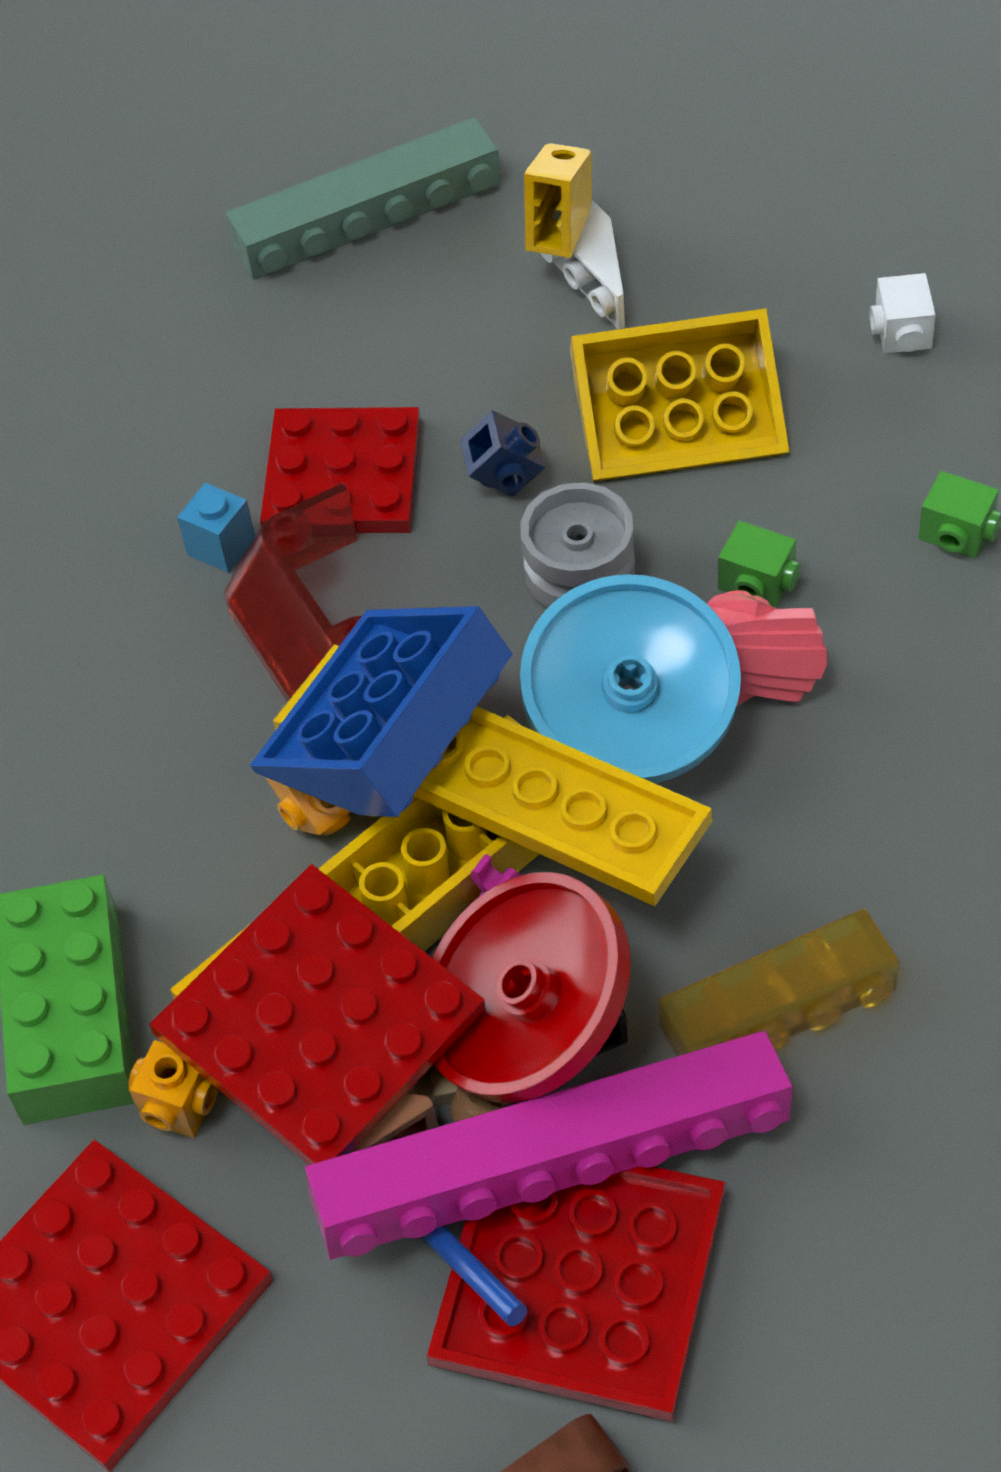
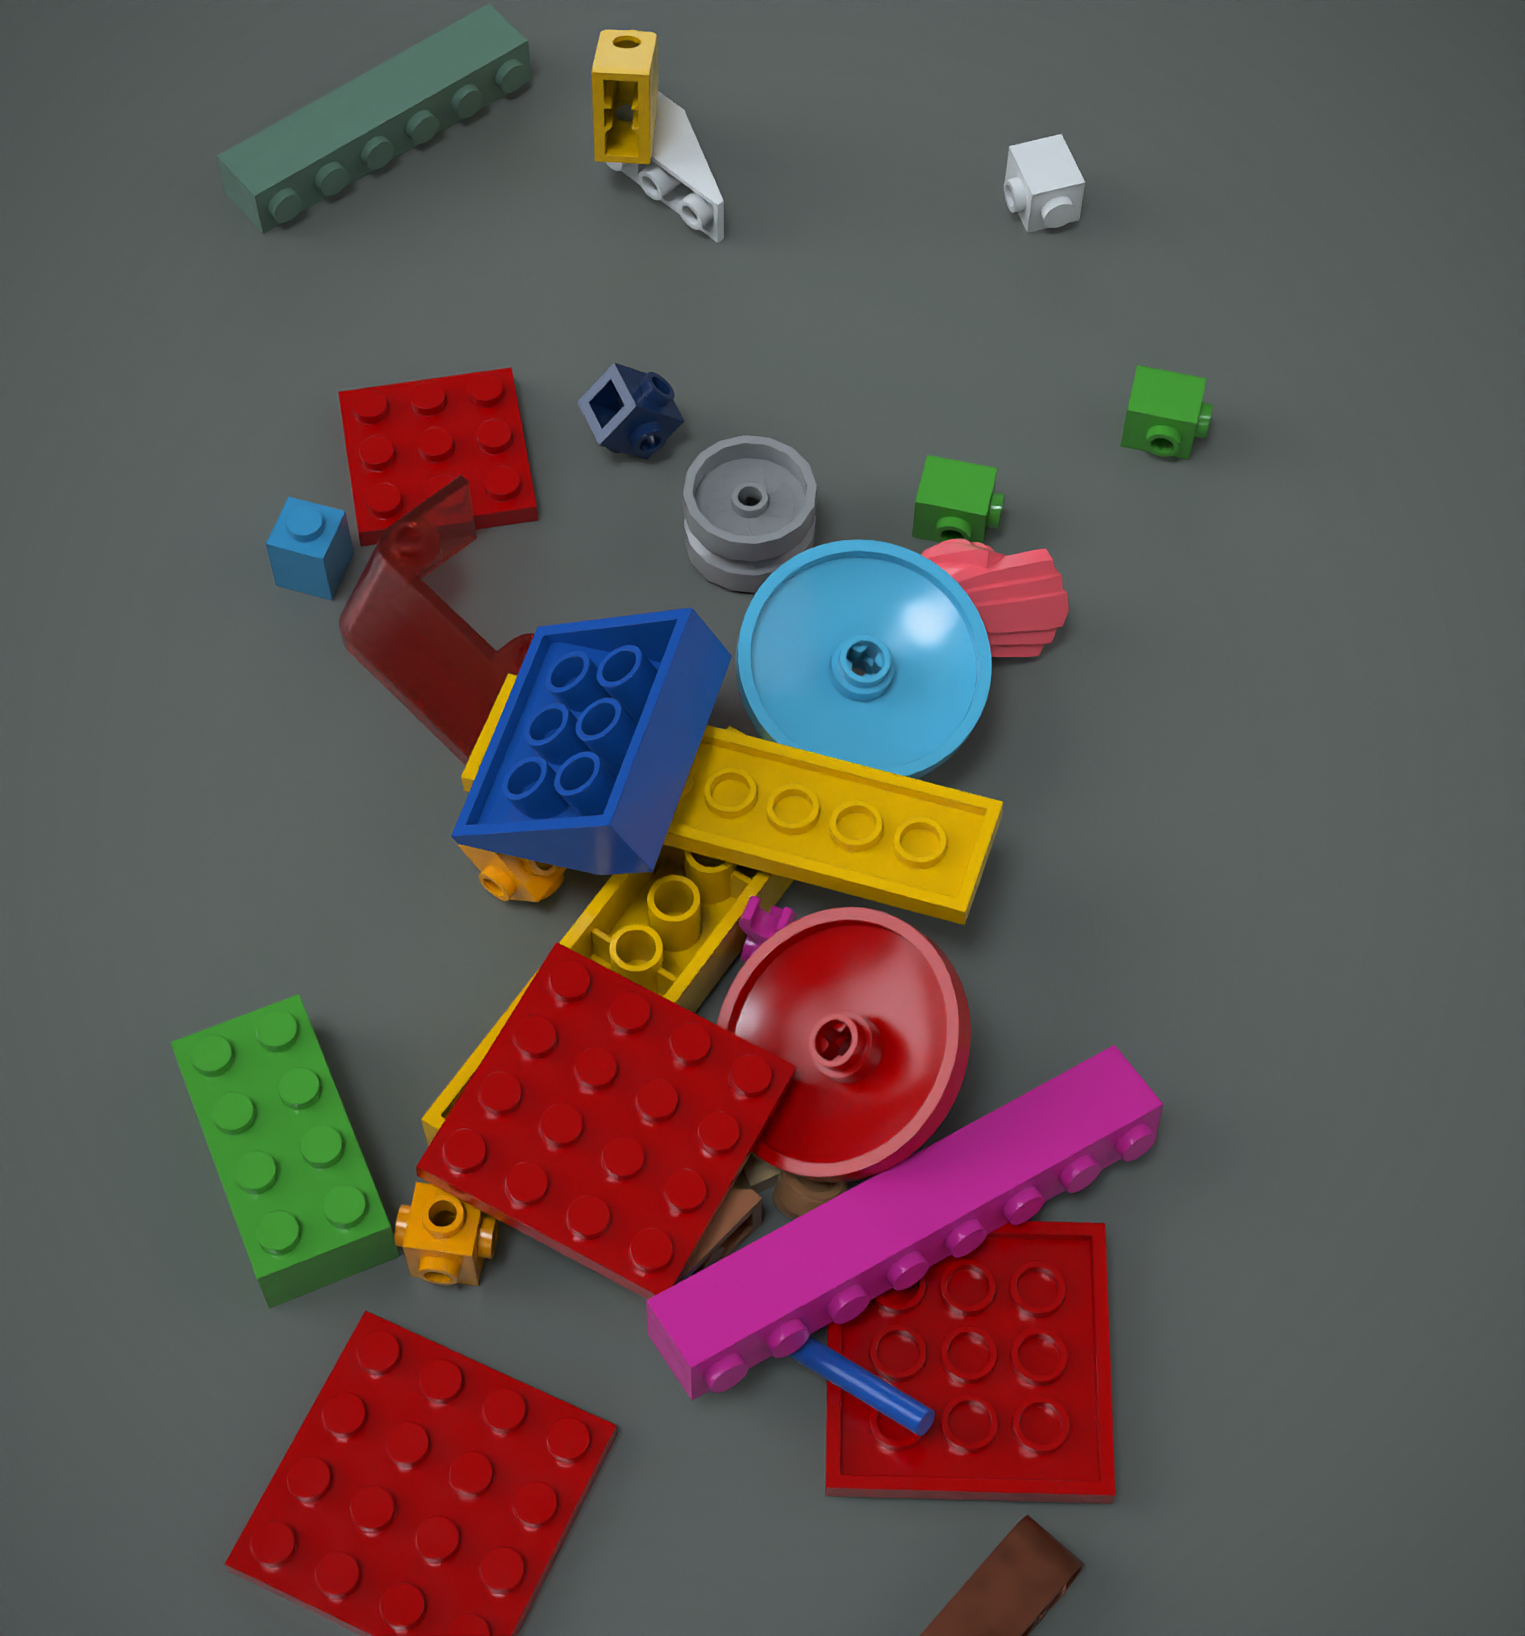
camera: 20 degrees left, 5 degrees up
(678, 395) = (813, 314): yellow slope -> none
(785, 988) = (1111, 994): clear yellow brick -> none

